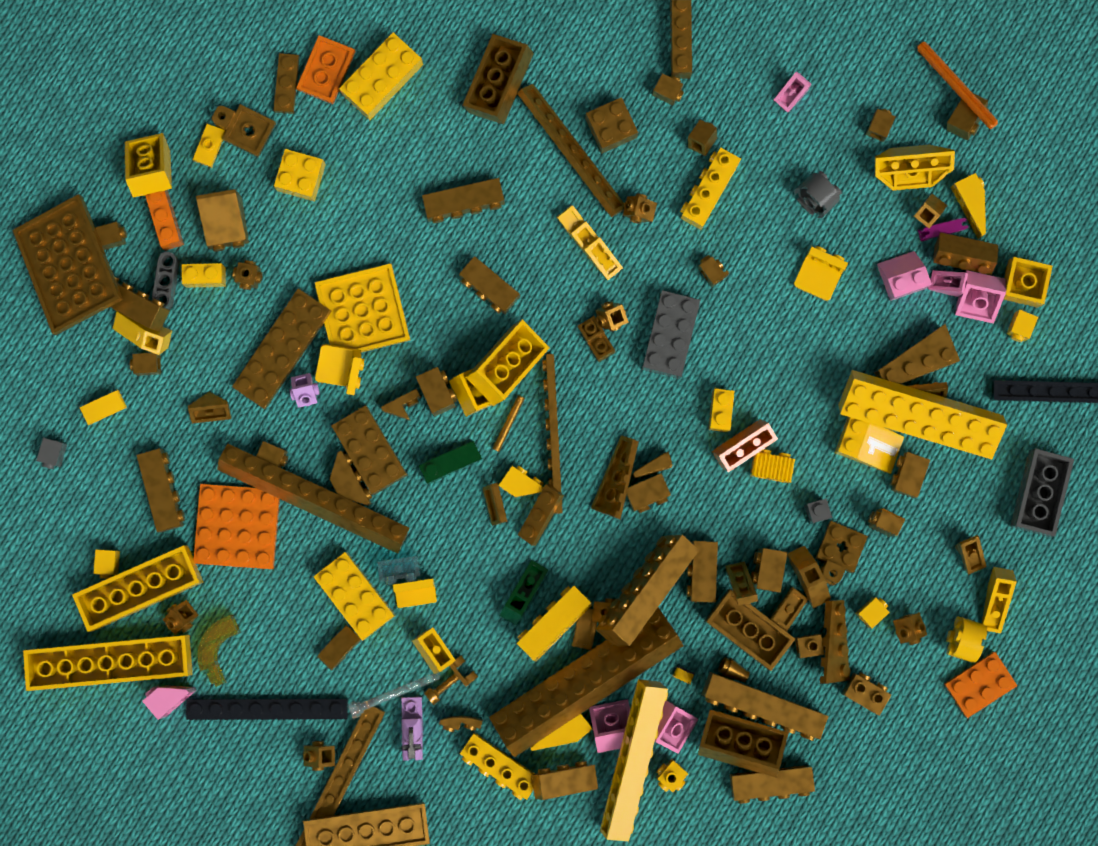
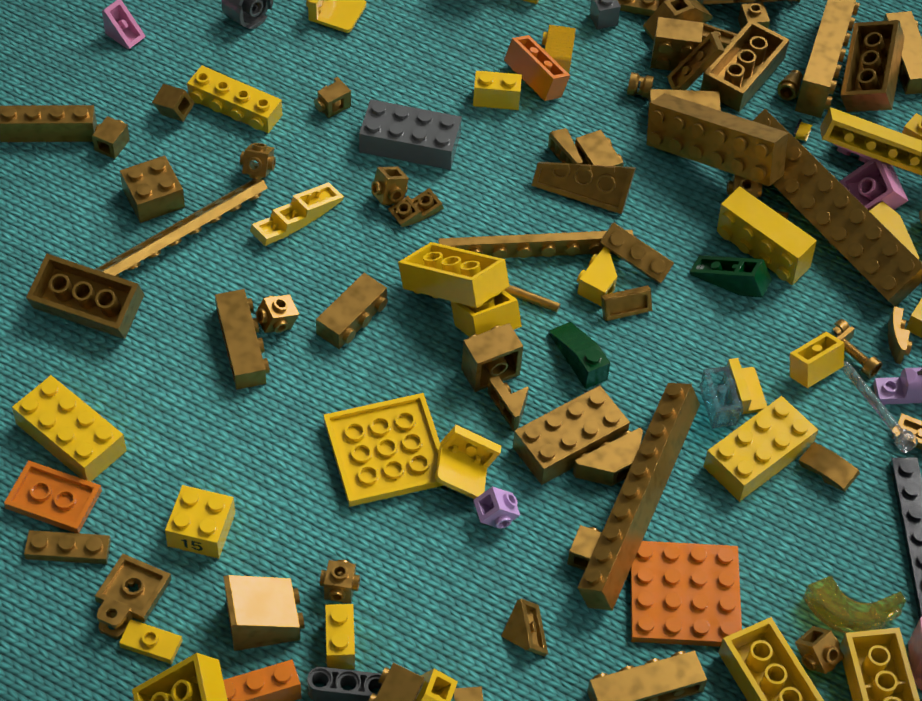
camera: 95 degrees left, 30 degrees down
(281, 348) = (441, 539): pearl gold plate -> none
(483, 233) = (277, 313): none -> pearl gold brick
(730, 535) = (645, 85): none -> pearl gold wheel

